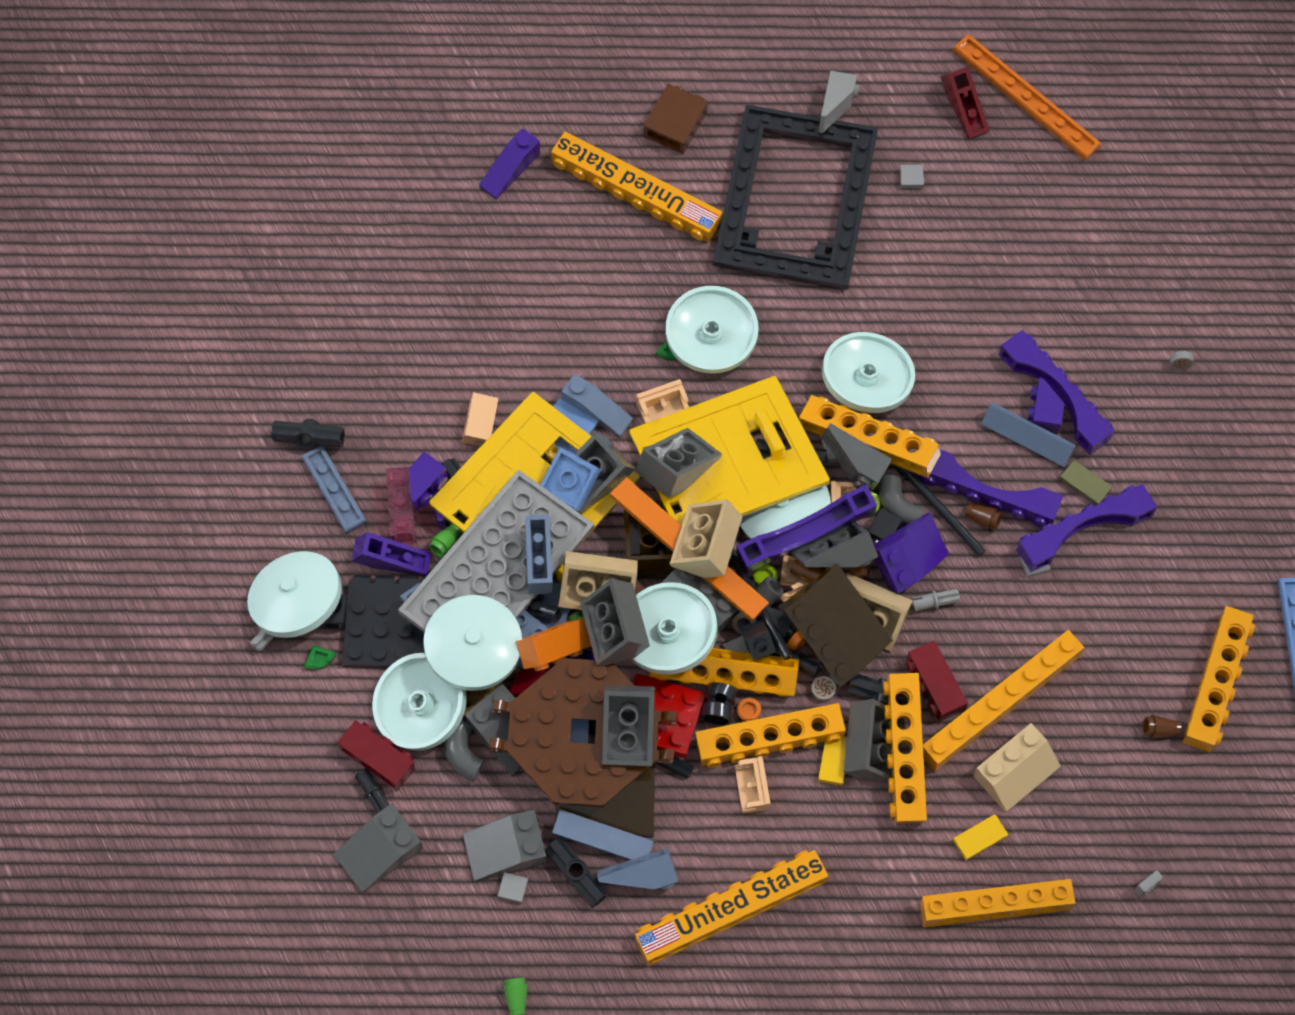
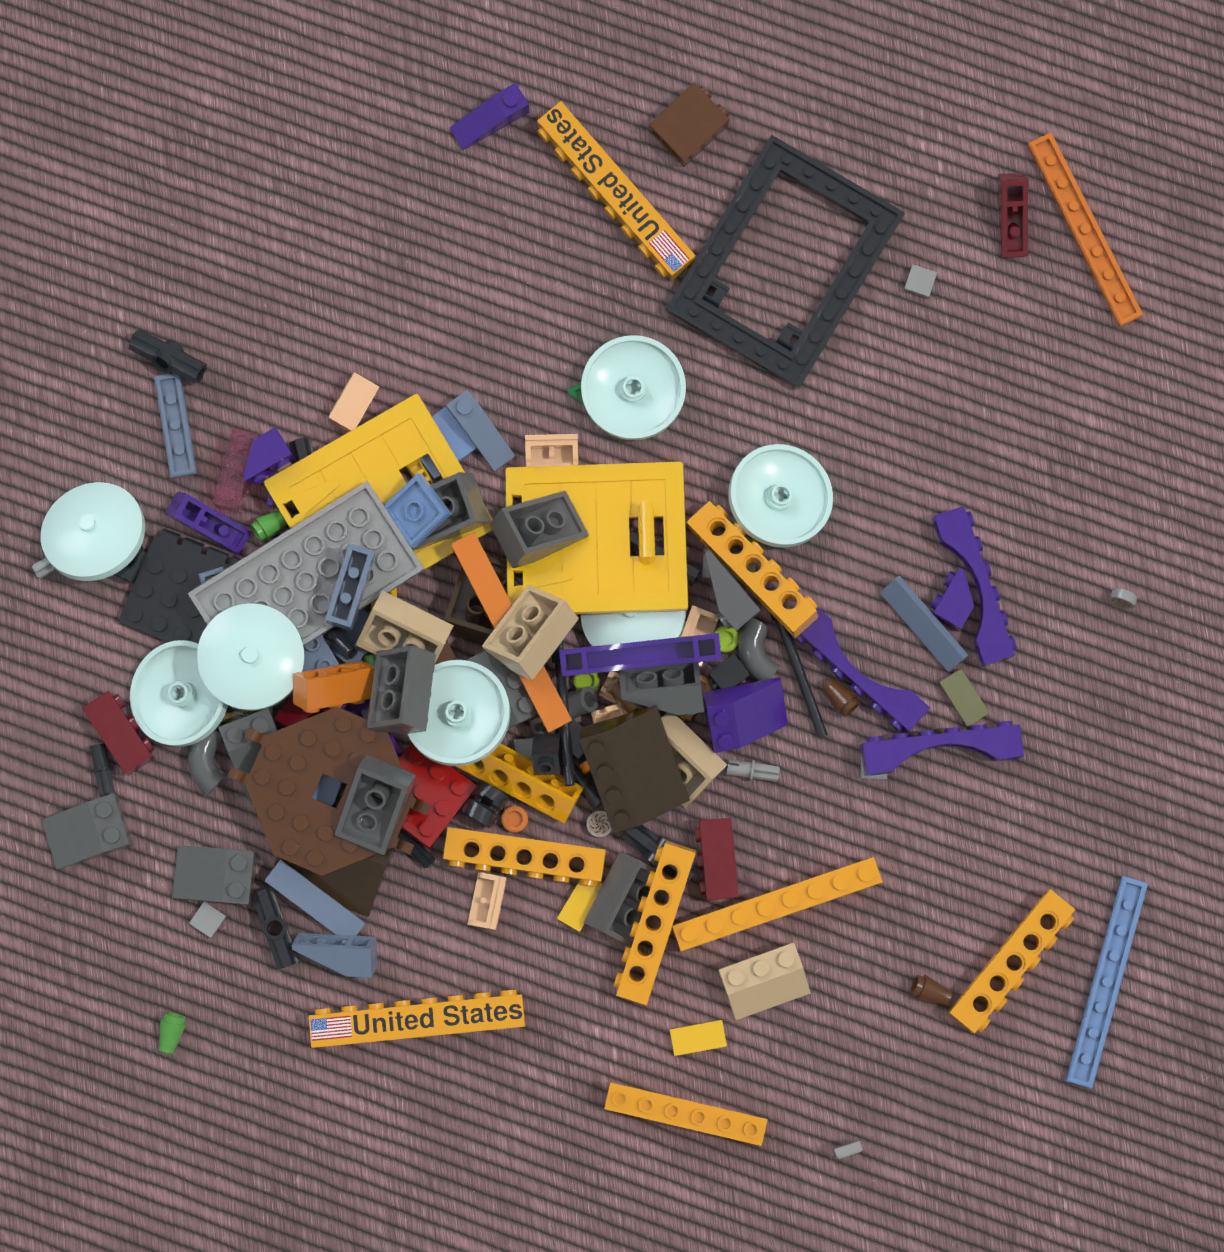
camera: 20 degrees right, 15 degrees up
(319, 658) = (97, 606): green tile -> none
(838, 97) = (874, 163): light grey slope -> none

